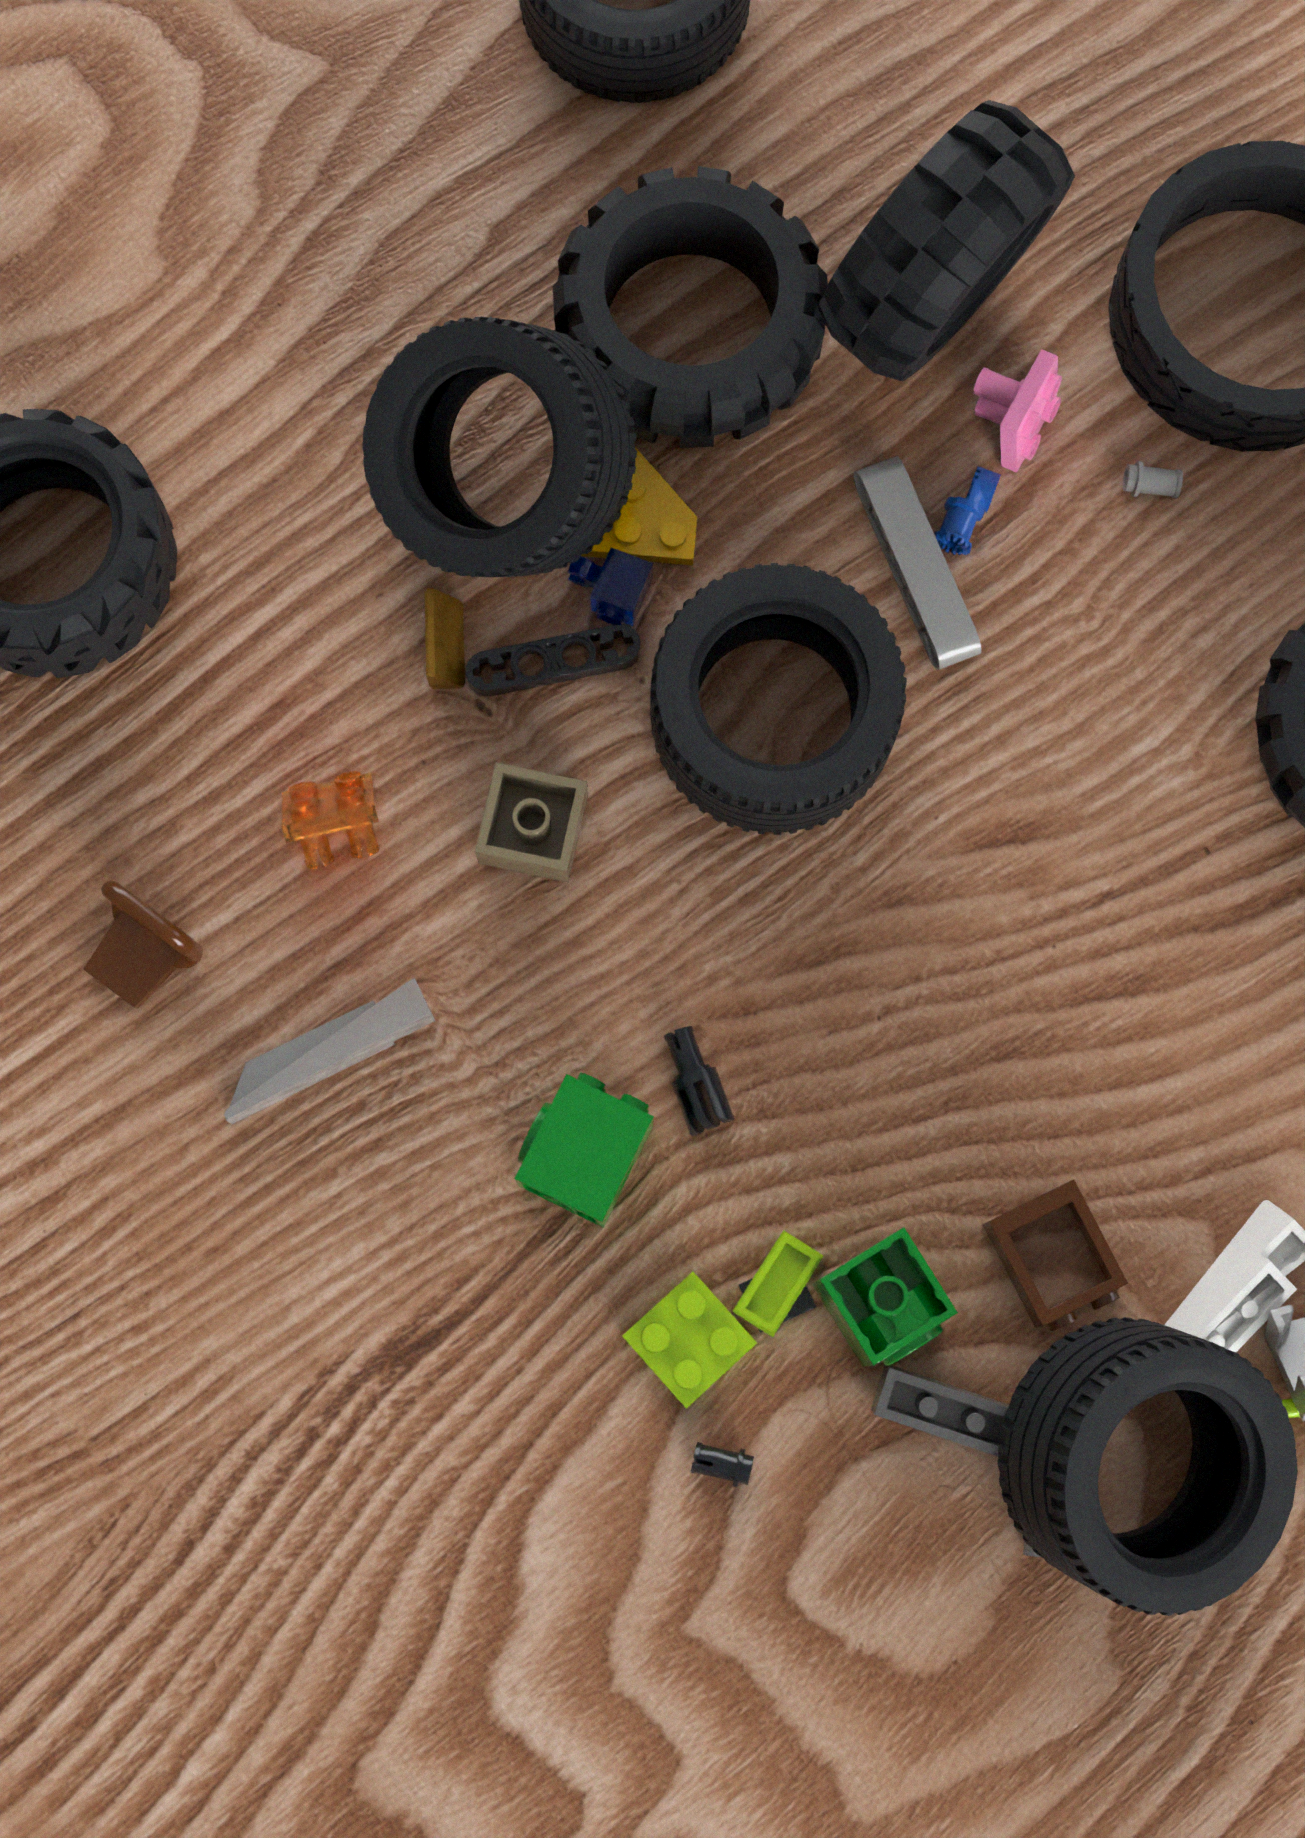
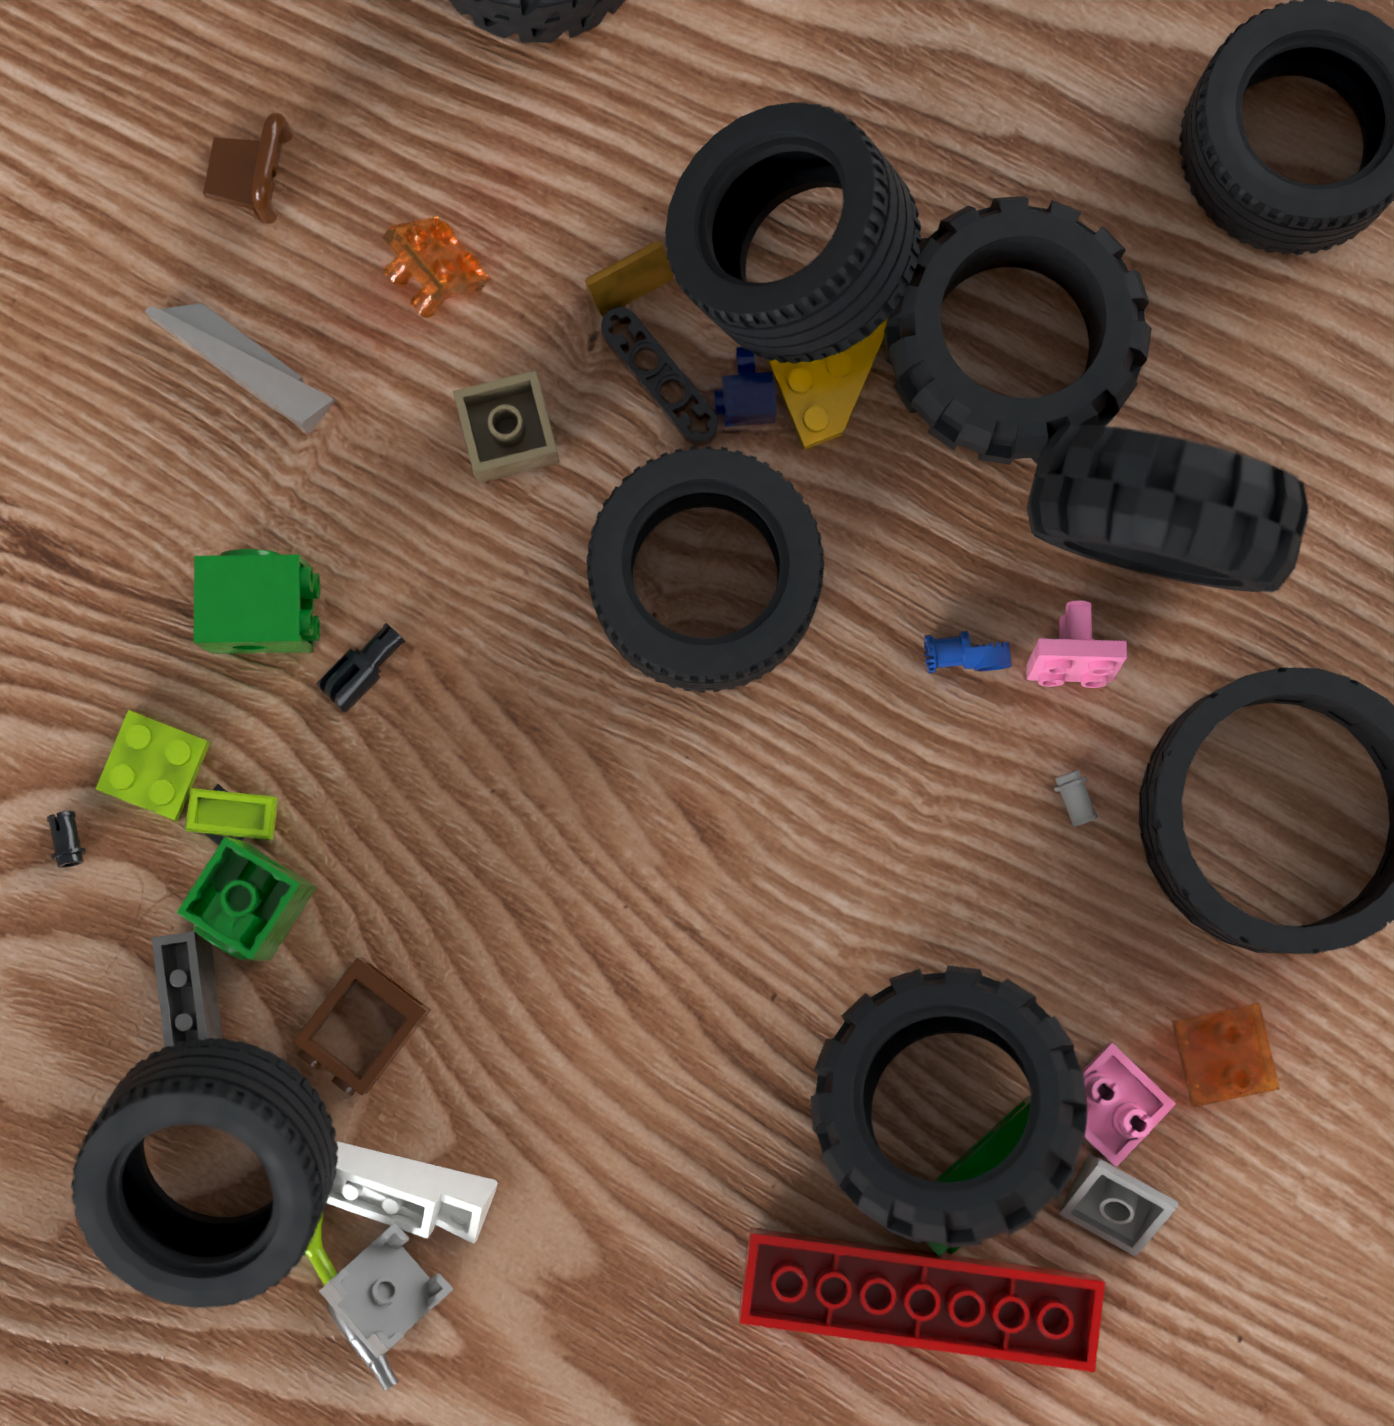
camera: 65 degrees right, 5 degrees up
(917, 563) = (897, 633): light grey beam -> none

